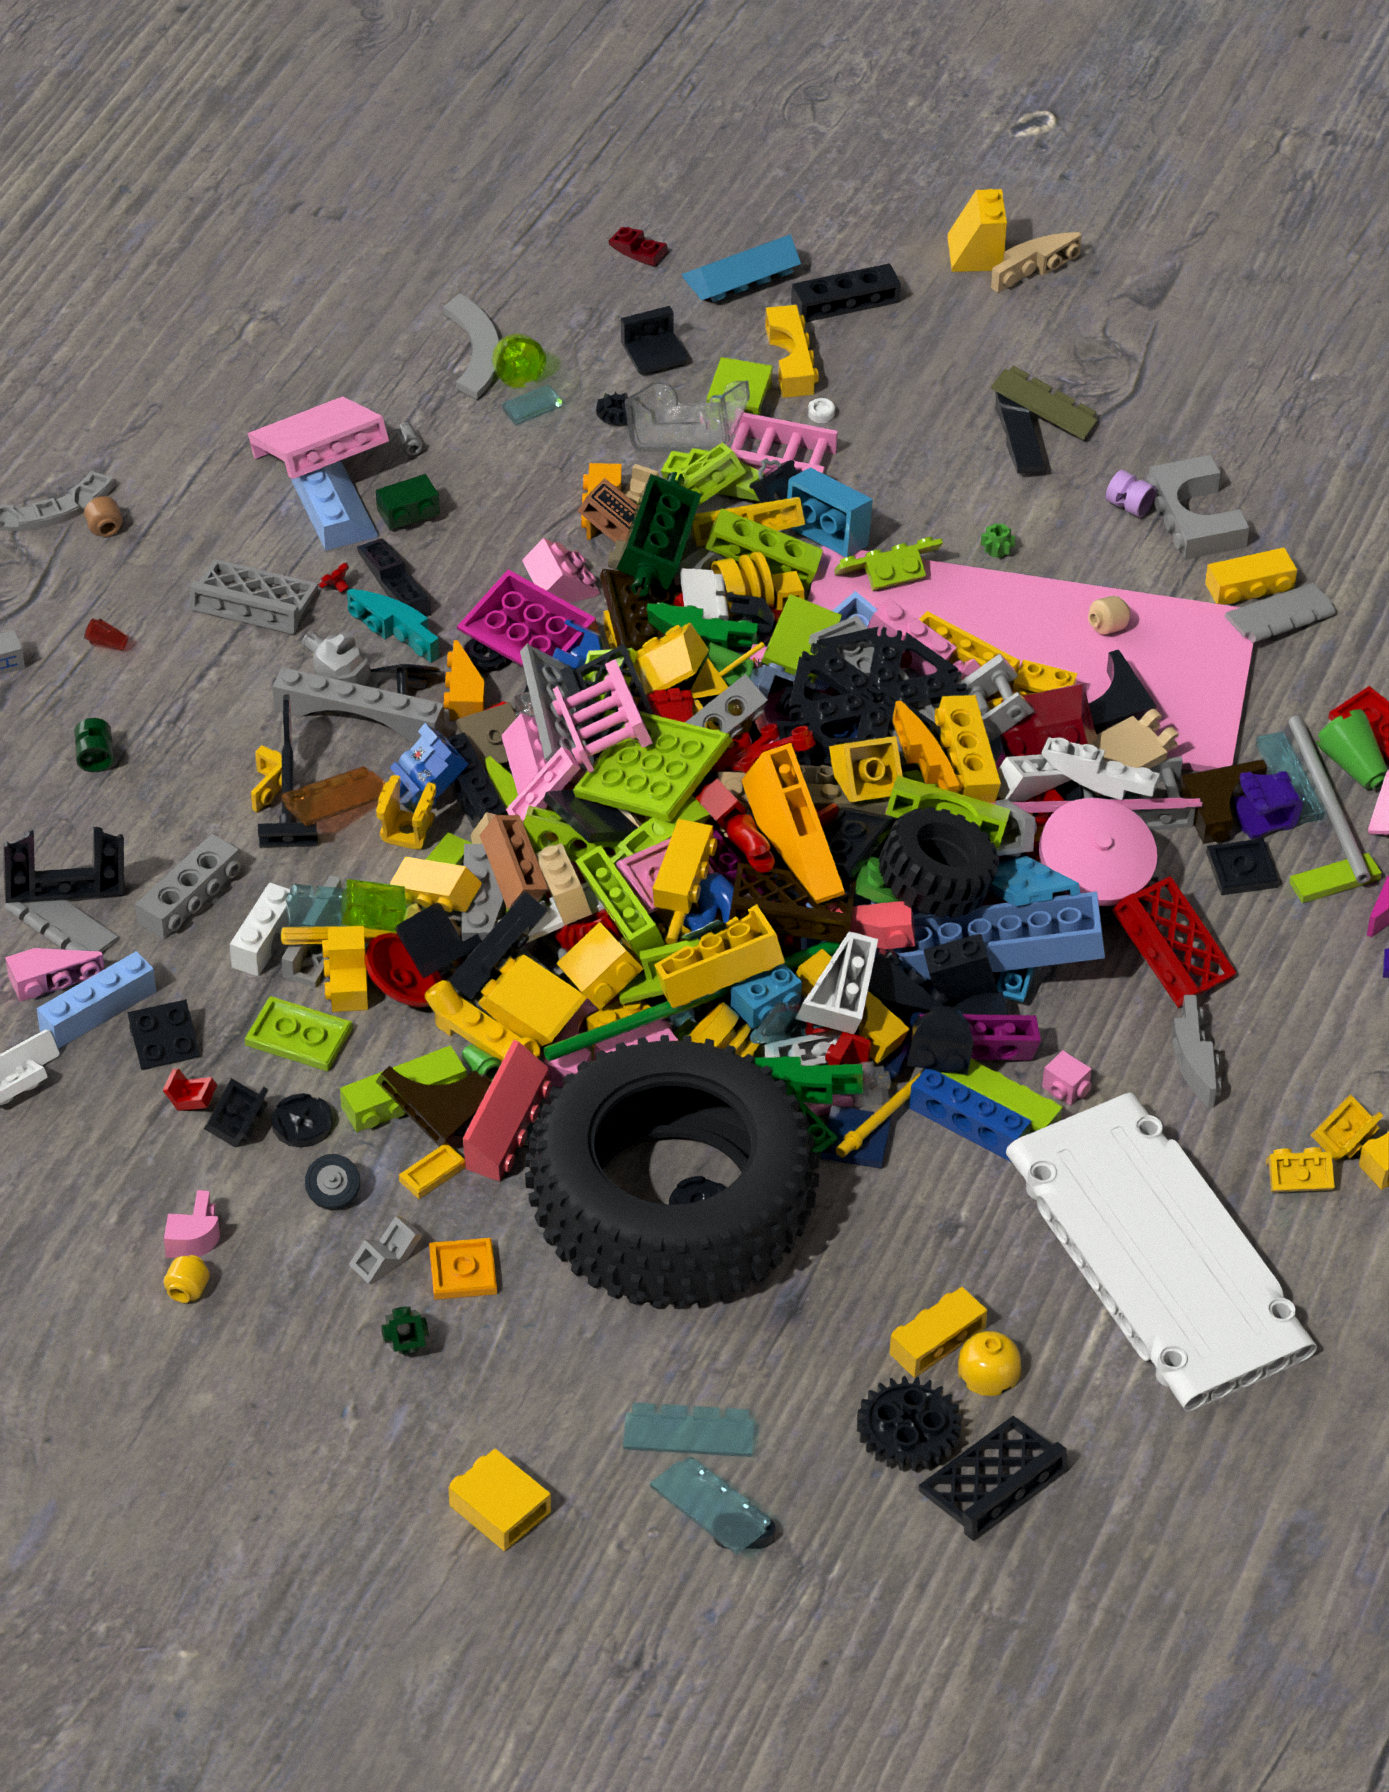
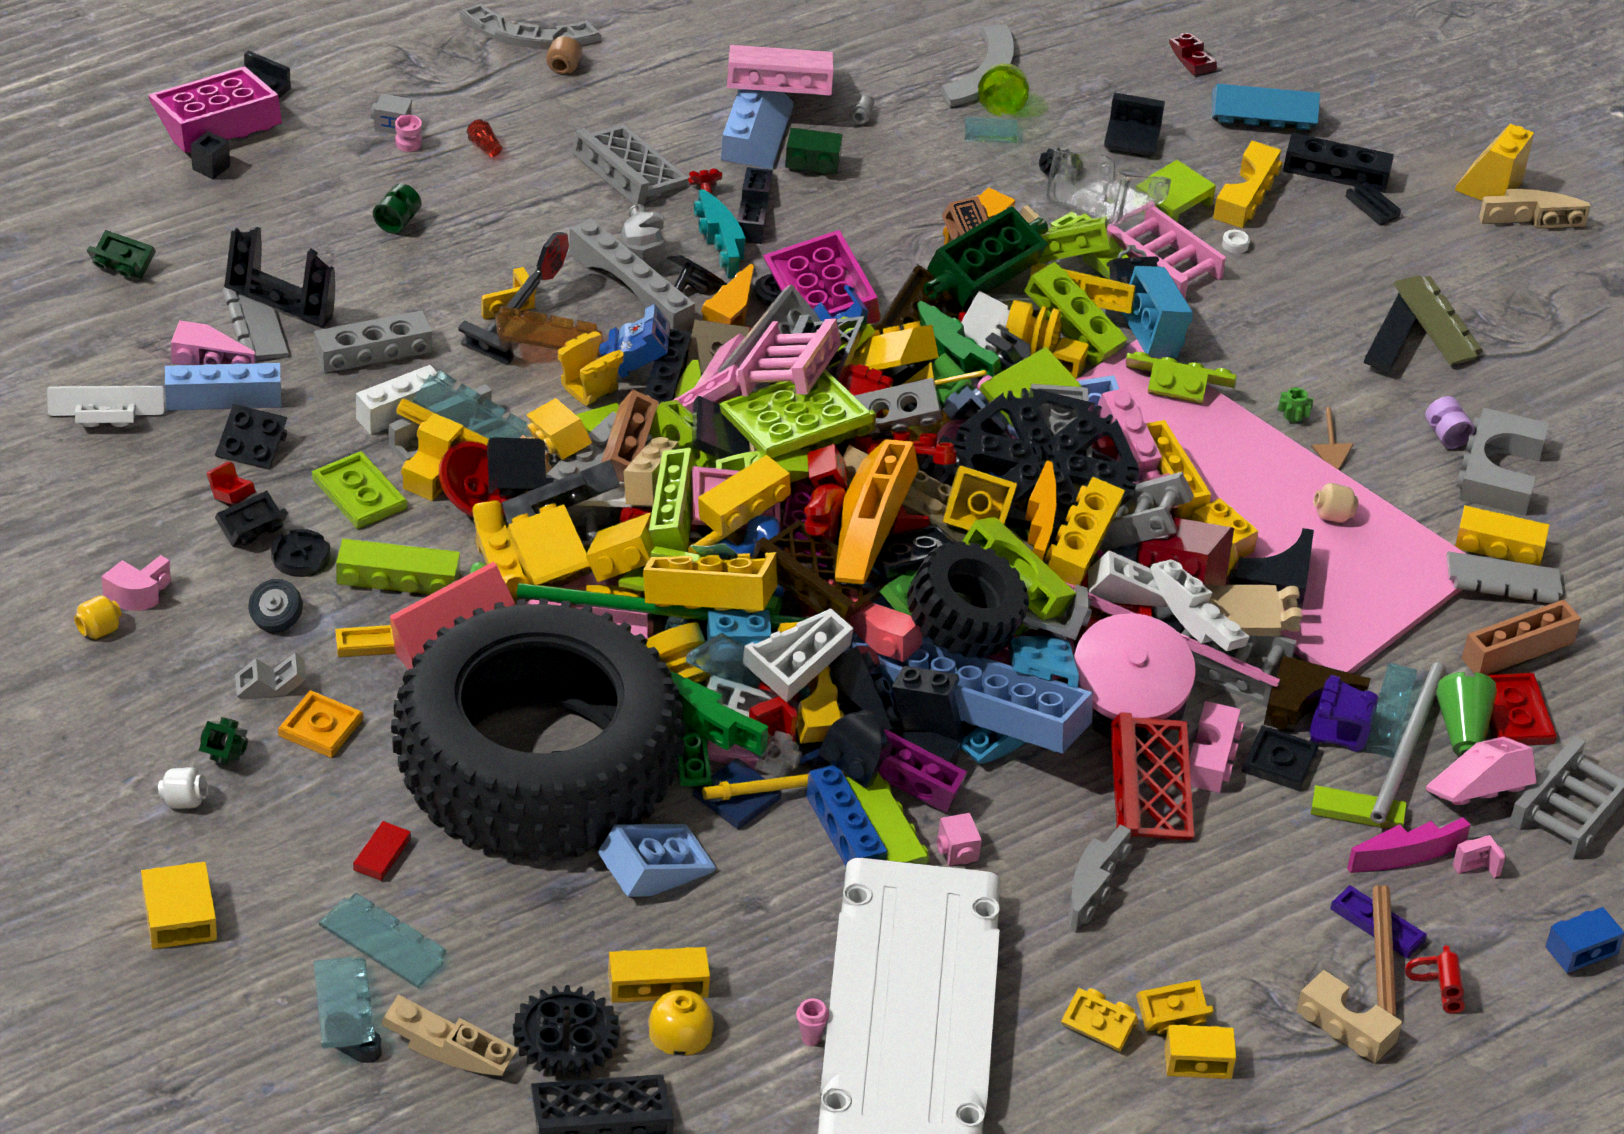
camera: 30 degrees right, 5 degrees down
(34, 664) = (408, 133): none -> bright pink wheel
(372, 905) = (491, 416): clear neon green brick -> none
(407, 1393) = (183, 788): none -> white head
(436, 1108) = (400, 584): dark brown arch -> none
(560, 571) = (889, 256): bright pink slope -> none
(617, 1353) = (382, 850): none -> red tile
(830, 1488) = (450, 1043): none -> tan slope
(845, 1232) = (654, 857): none -> light blue slope
(900, 317) = (1376, 203): none -> black tile
(1054, 569) = (1333, 452): none -> medium nougat piece
(1095, 1300) = (812, 1019): none -> bright pink cone
(1187, 871) = (1217, 732): none -> bright pink arch
(1342, 661) = (1521, 638): none -> nougat brick

